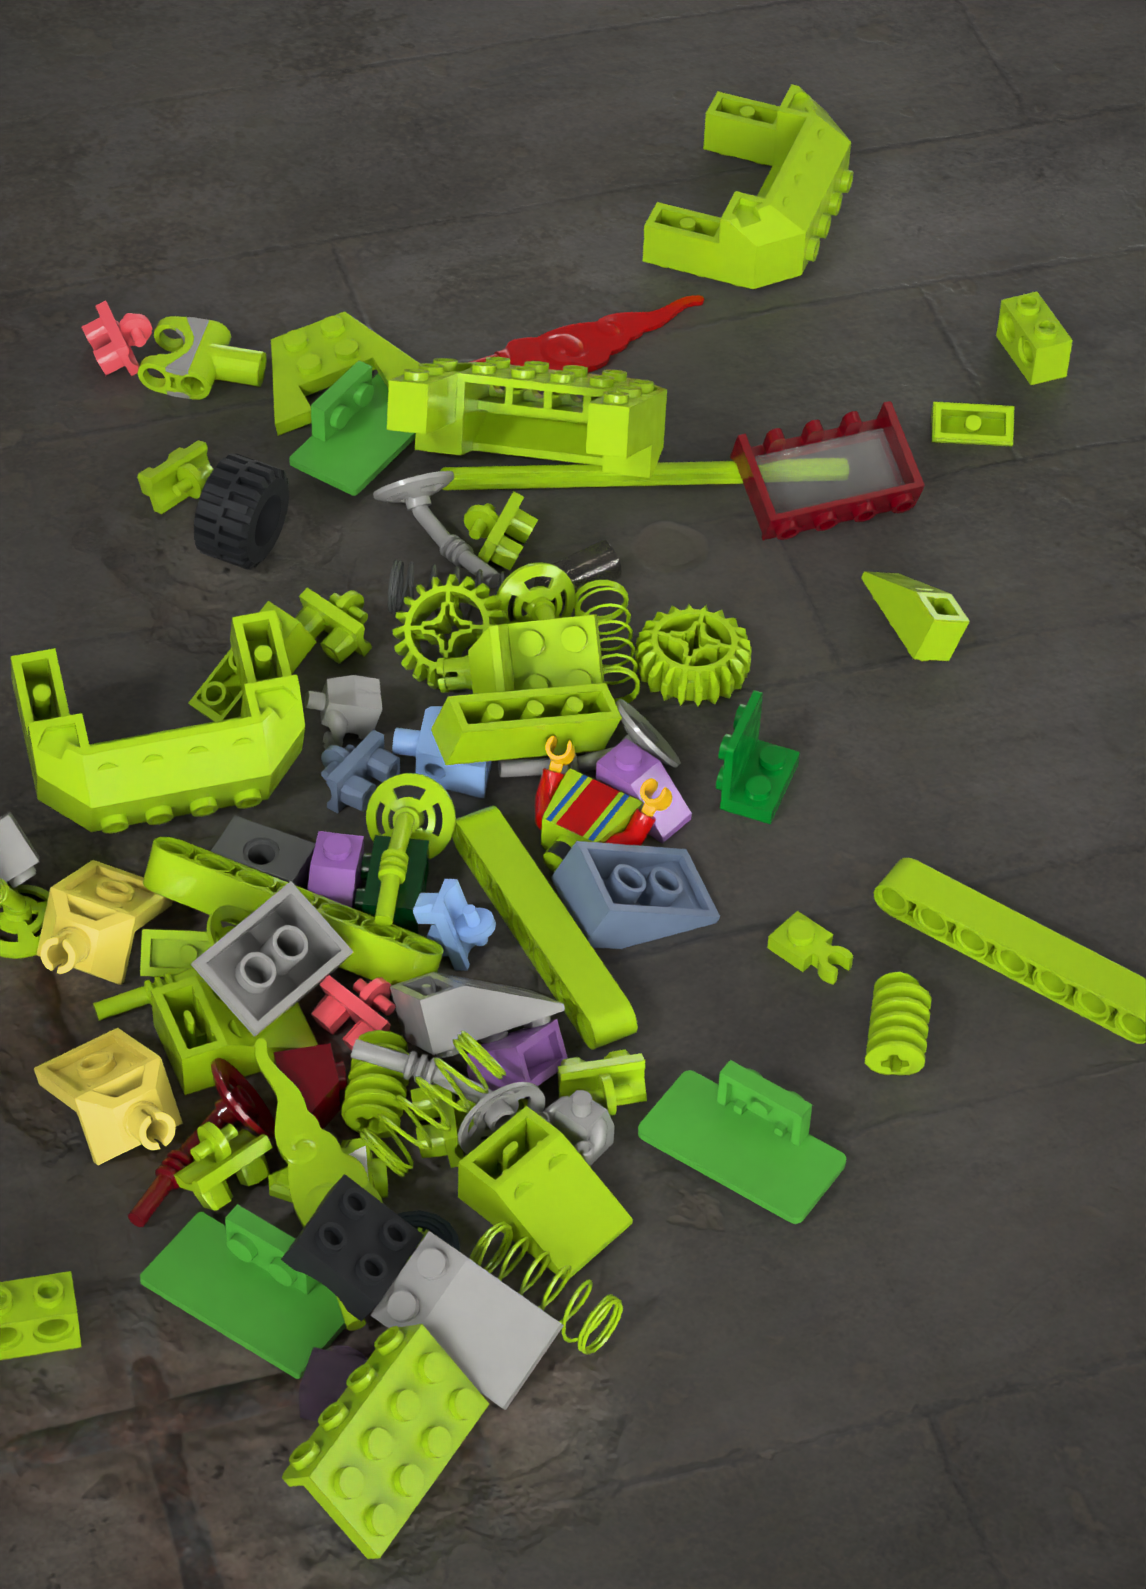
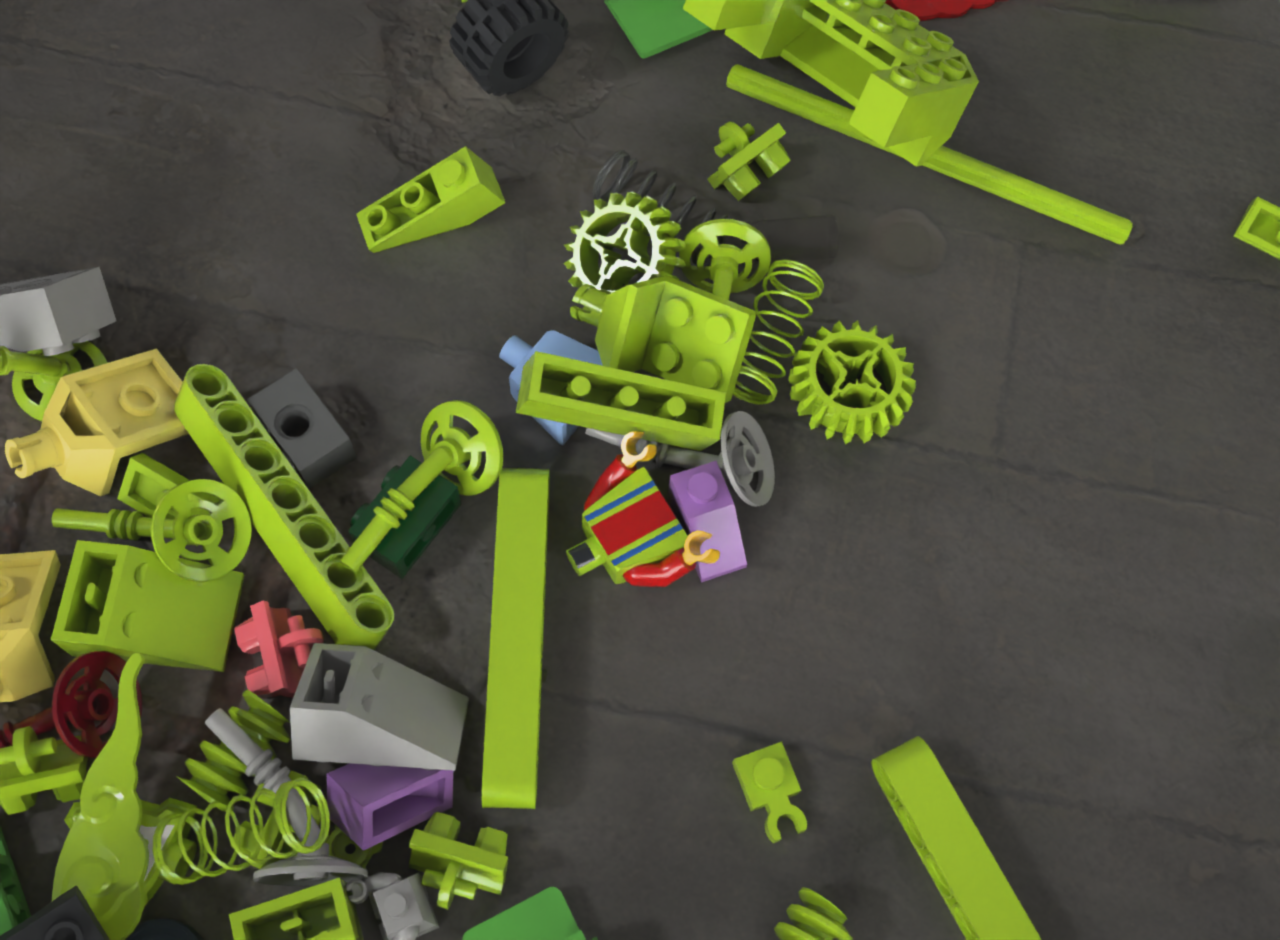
camera: 25 degrees right, 20 degrees up
(167, 770) = (268, 280): lime wedge -> none
(272, 959) = (194, 570): light grey slope -> none
(316, 1077) = (174, 718): dark red slope -> none
(337, 867) = (351, 478): medium lavender slope -> none
(340, 617) = (522, 176): lime hips -> none
(347, 706) = (482, 289): light grey piece -> none
(352, 768) = (449, 361): sand blue hips -> none
(416, 494) = (695, 153): light grey dish -> none
(456, 923) = (421, 595): light blue hips -> none
(632, 893) = (628, 640): sand blue slope -> none
(753, 770) = (835, 547): green bracket -> none
(829, 474) = (1104, 235): window -> none
(921, 615) = (1107, 438): lime slope -> none

